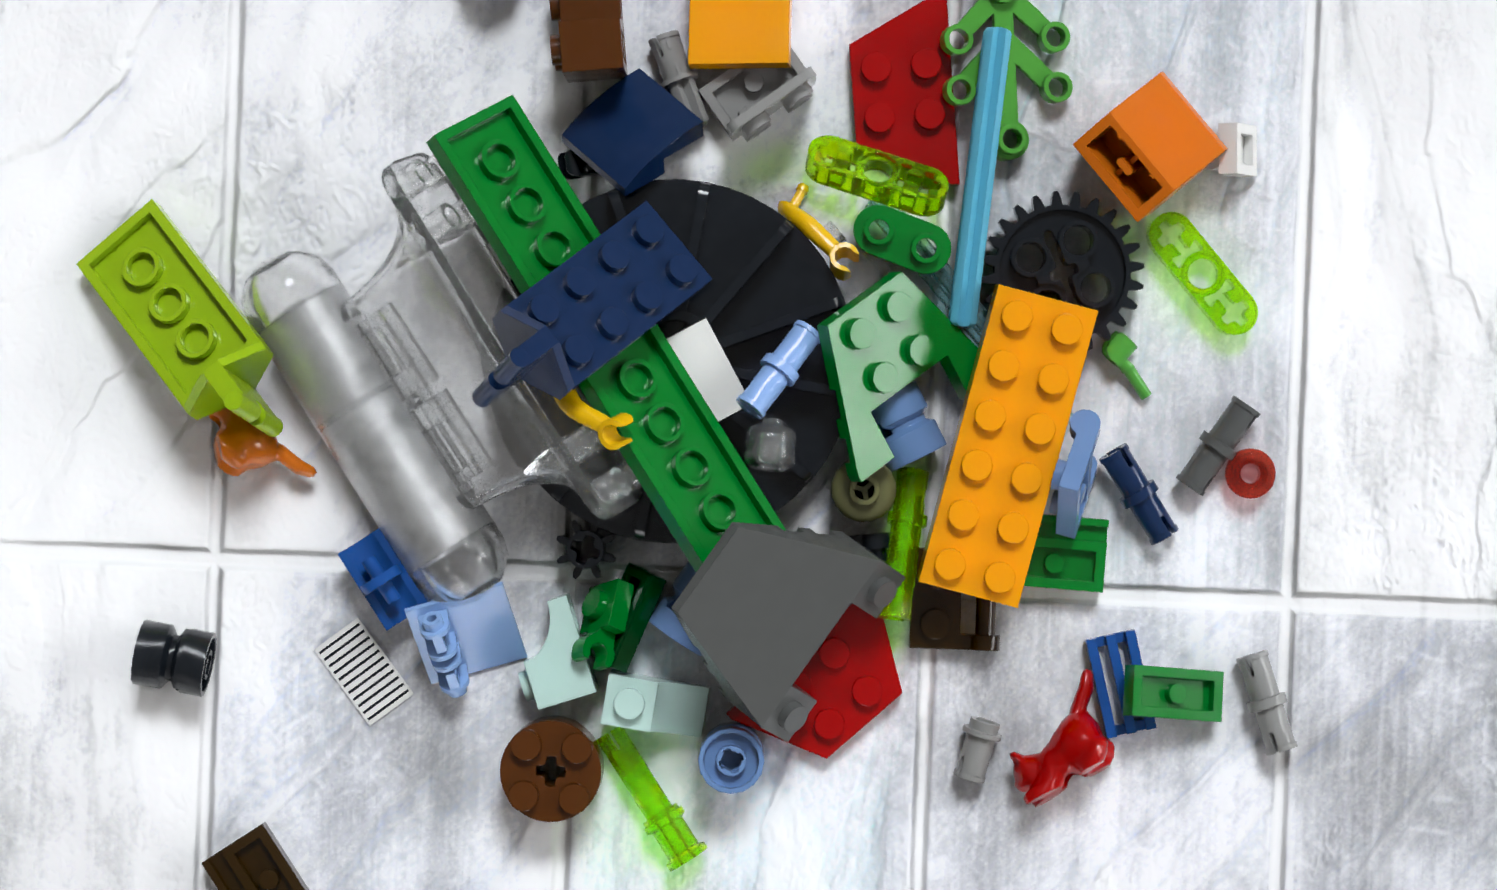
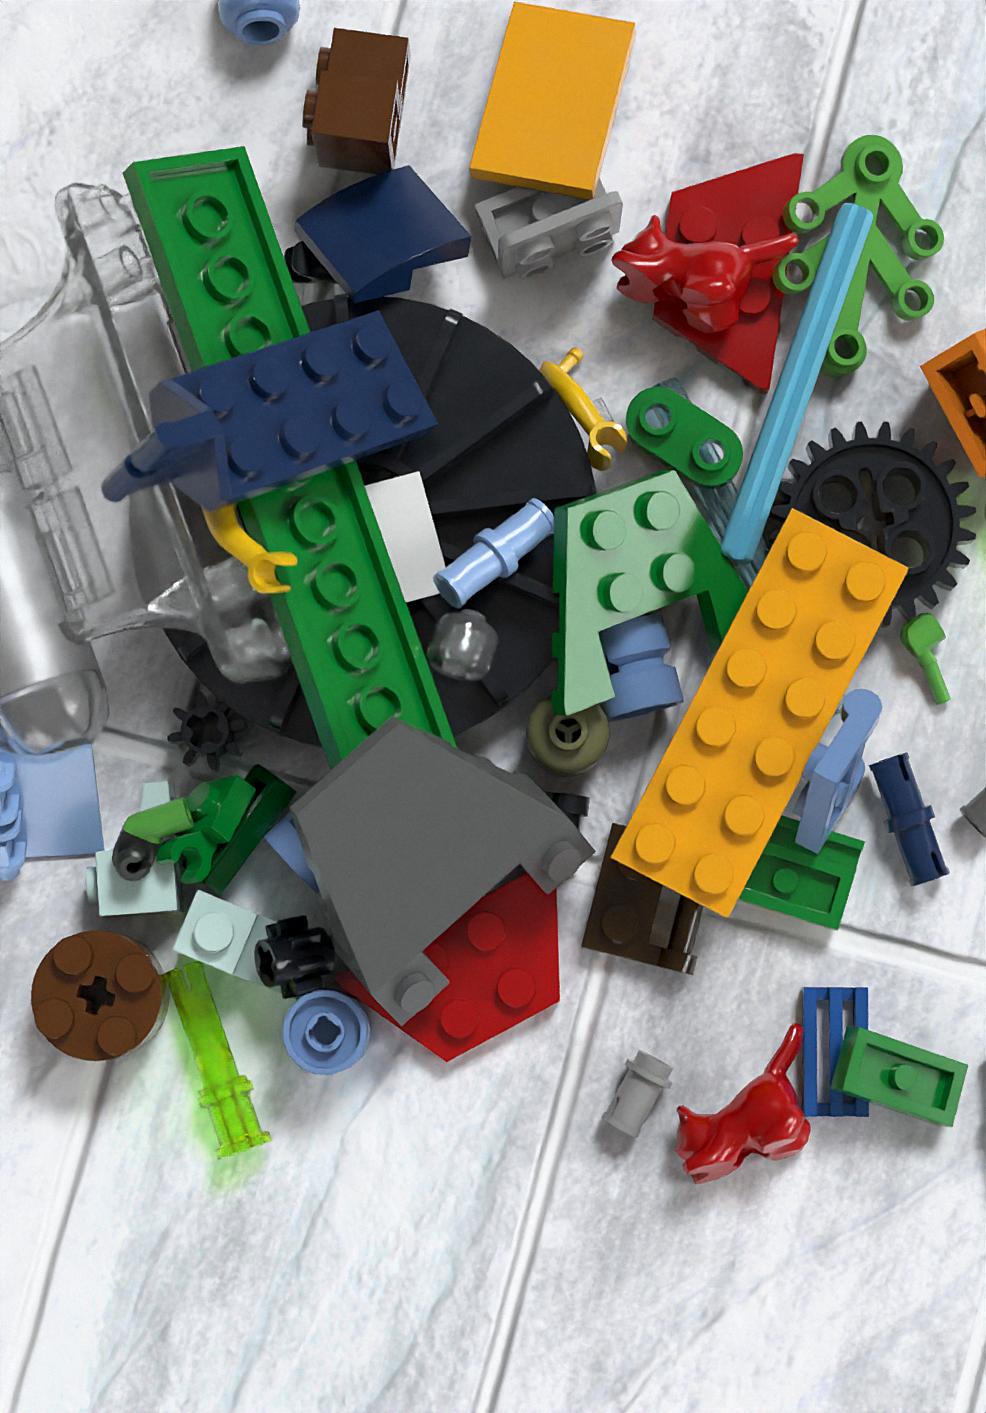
camera: 15 degrees right, 5 degrees down
(558, 640) = (143, 835): none -> arm
(676, 72) = (453, 178): light grey axle -> none
(694, 708) = (294, 957): none -> black gear
(848, 153) = (723, 380): clear neon green beam -> none
(890, 112) = (701, 276): none -> red animal
(905, 535) = (611, 790): clear neon green pin -> none

